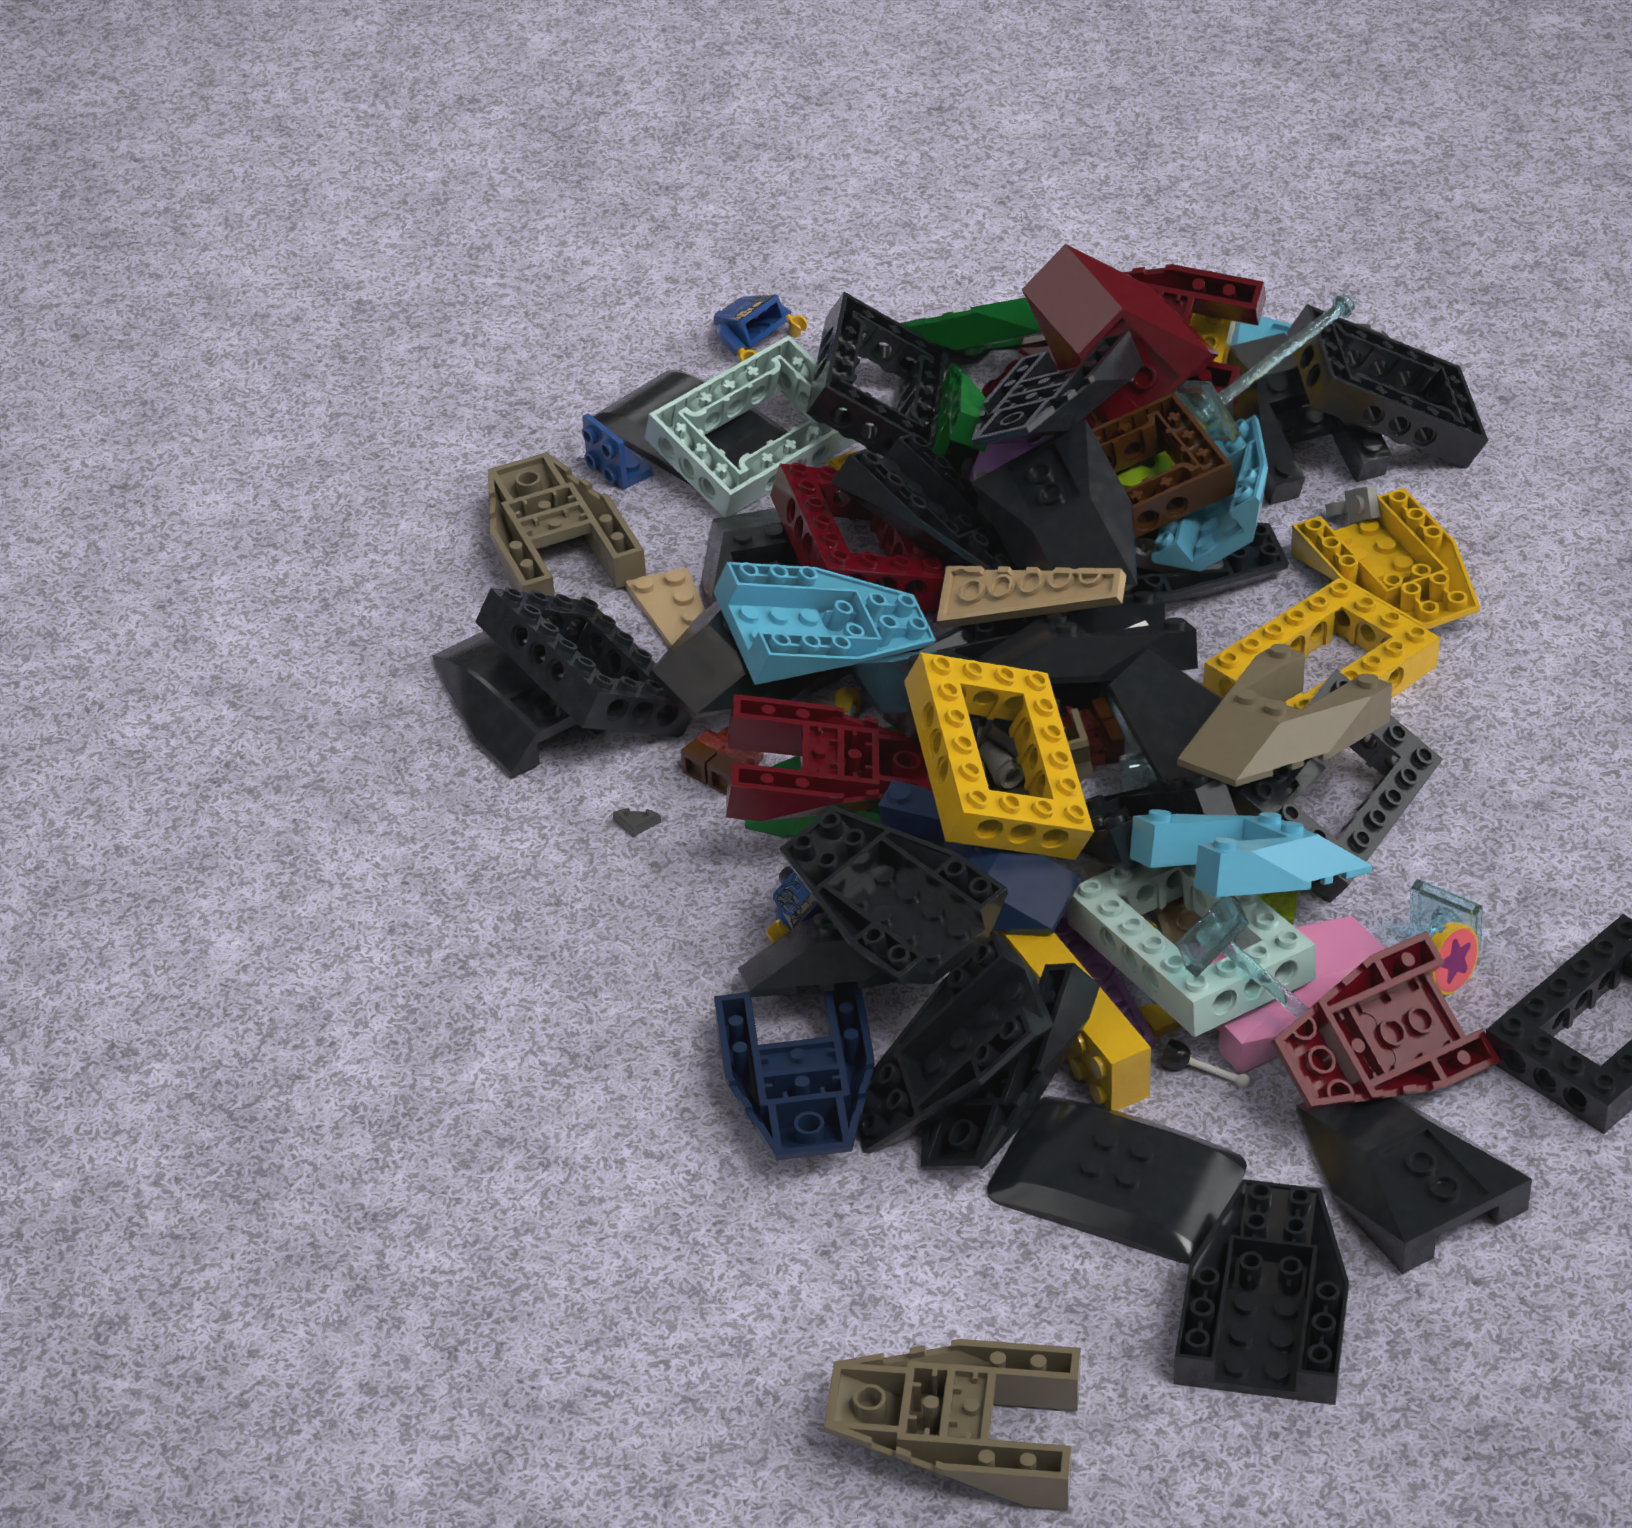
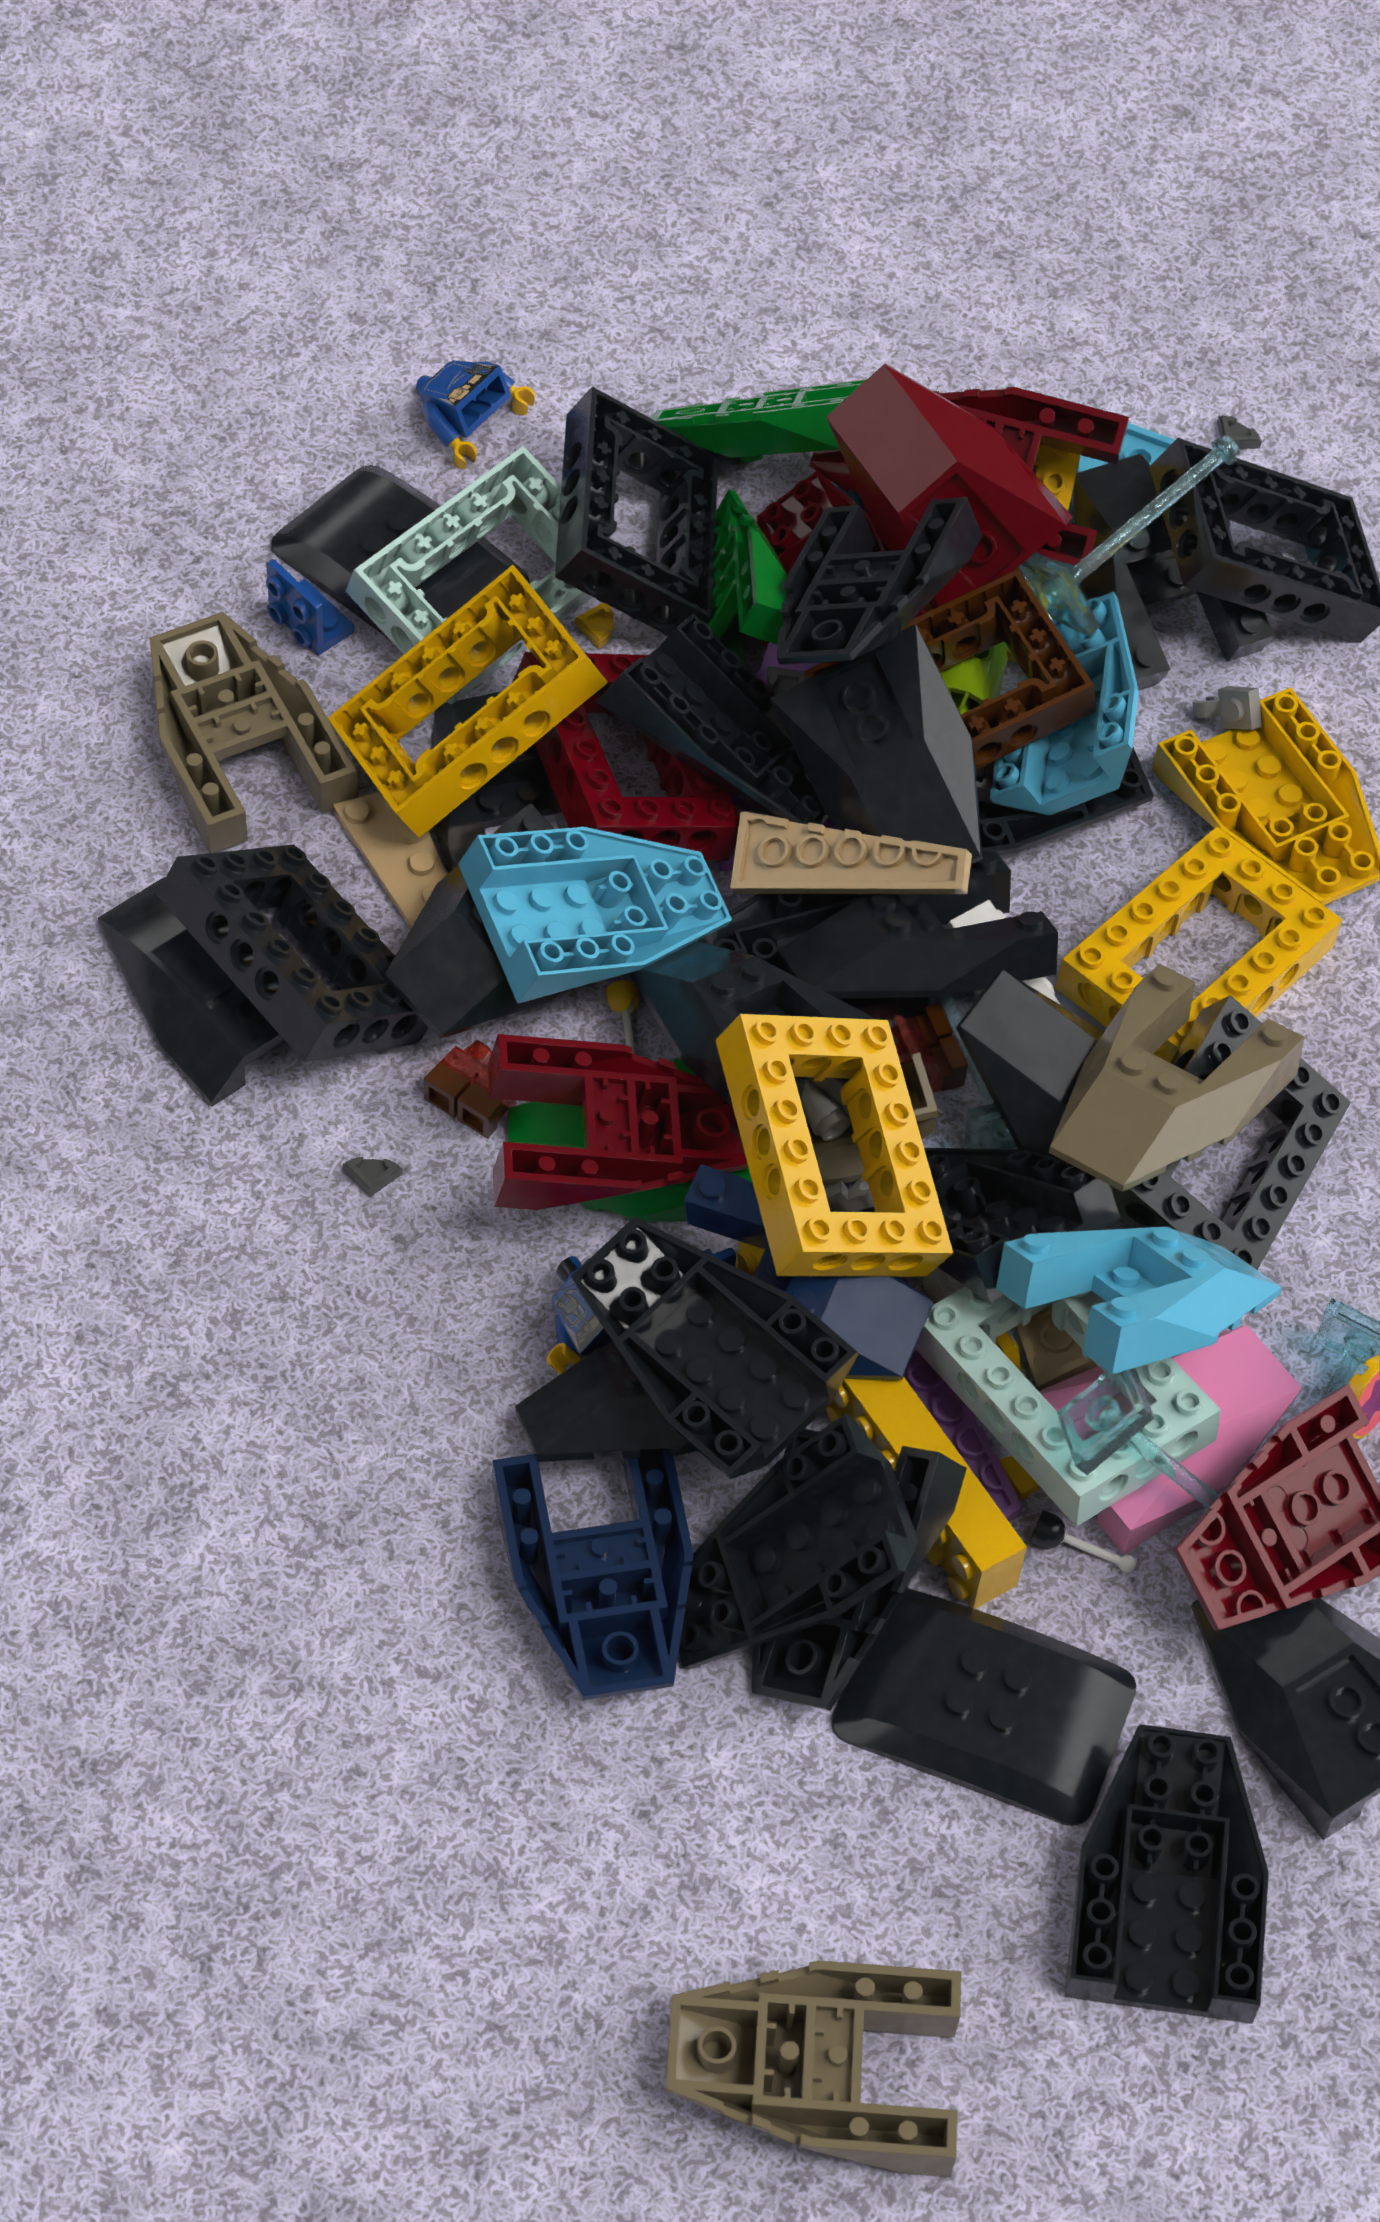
camera: 10 degrees left, 15 degrees up
(759, 437) = (436, 671): none -> yellow brick

